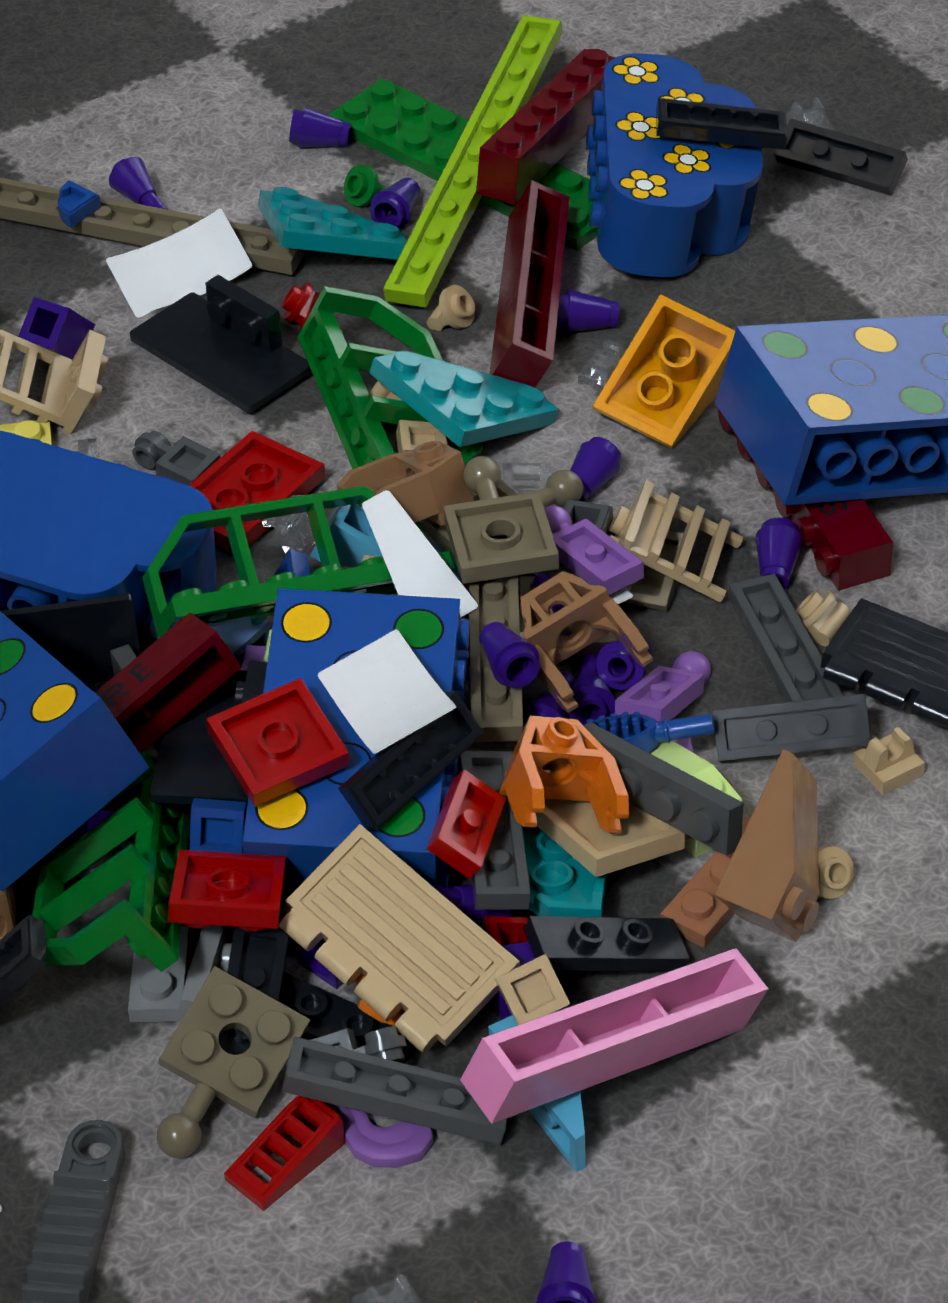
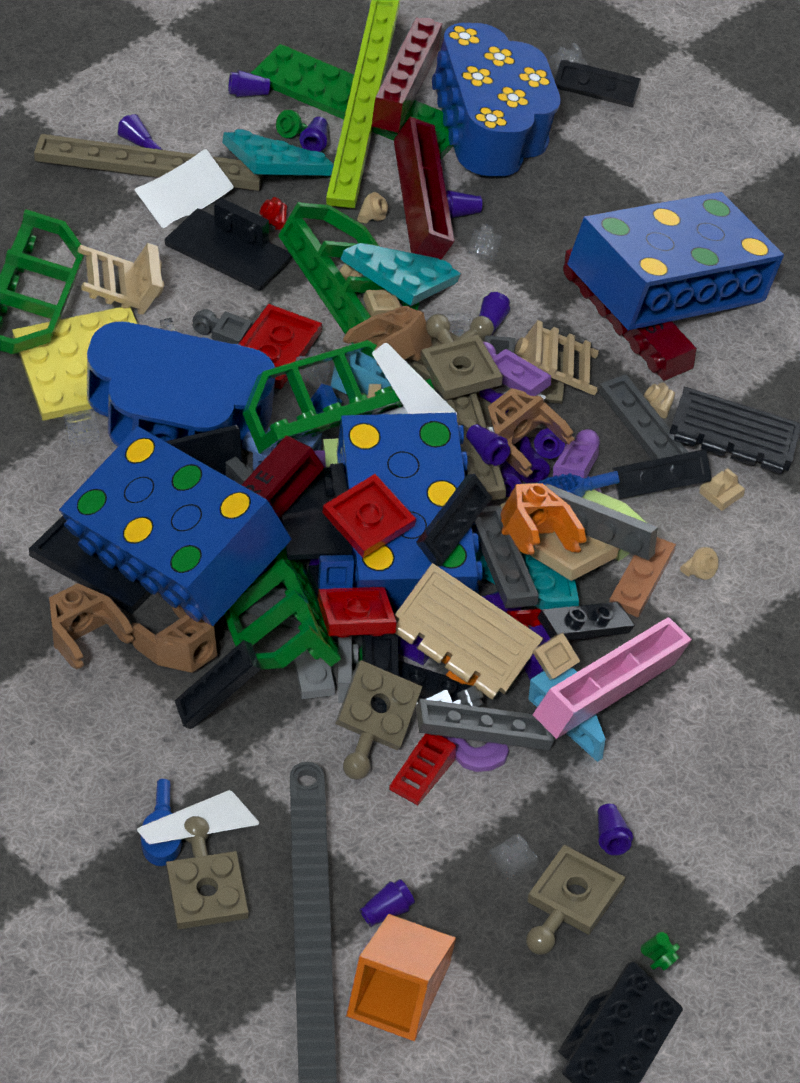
camera: 15 degrees left, 5 degrees up
(55, 327) = (119, 242): dark purple brick -> none
(76, 203) = (103, 150): blue tile -> none
(385, 691) = (428, 478): white sticker -> none
(466, 823) = (492, 556): red plate -> none
(667, 372) = (527, 243): light orange slope -> none
(721, 124) = (530, 71): black plate -> none
(776, 860) = (679, 568): medium nougat slope -> none
(778, 548) = (623, 357): dark purple cone -> none

